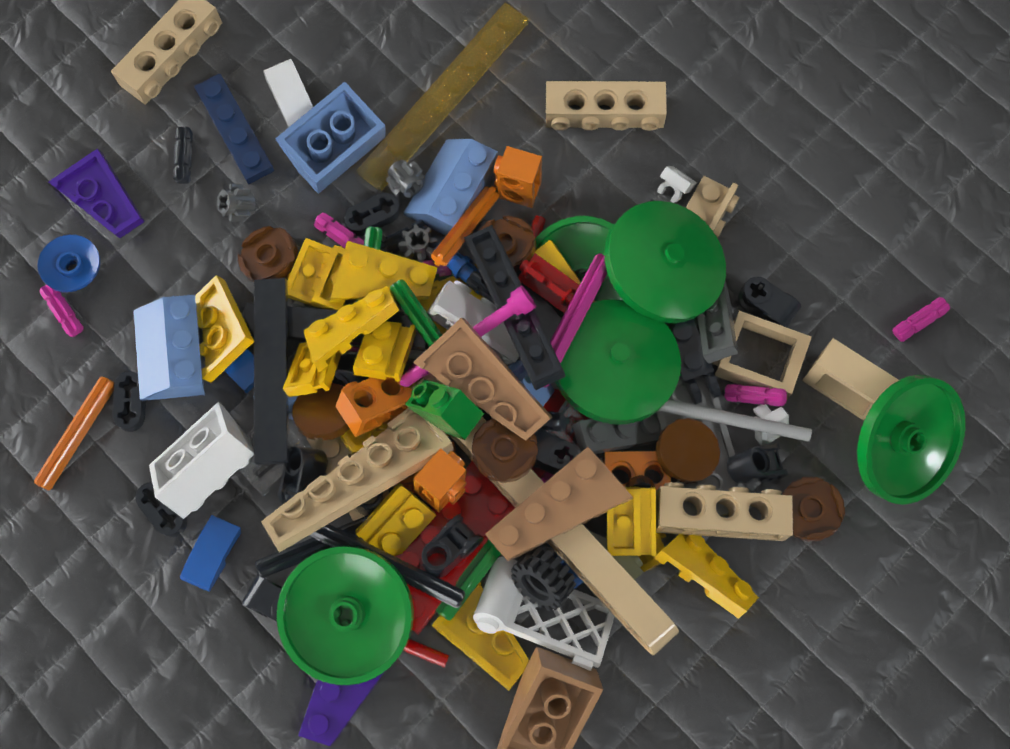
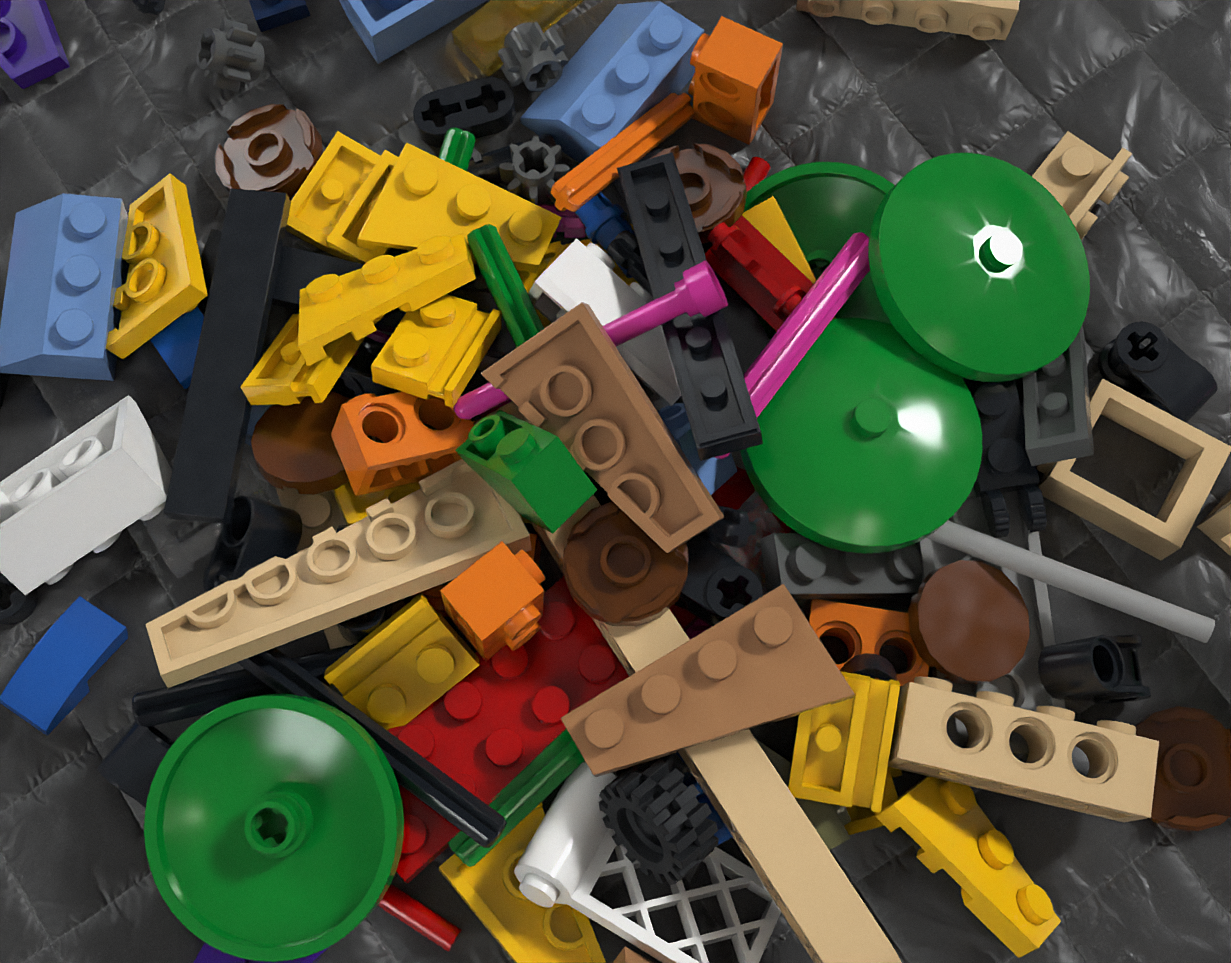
camera: 10 degrees right, 0 degrees up
(336, 230) = (394, 129): dark pink axle -> none
(454, 542) = (495, 727): black piece -> none
(676, 180) = (1017, 132): white tile -> none
(755, 395) = (1110, 539): dark pink axle -> none
(777, 415) = (1121, 572): white tile -> none

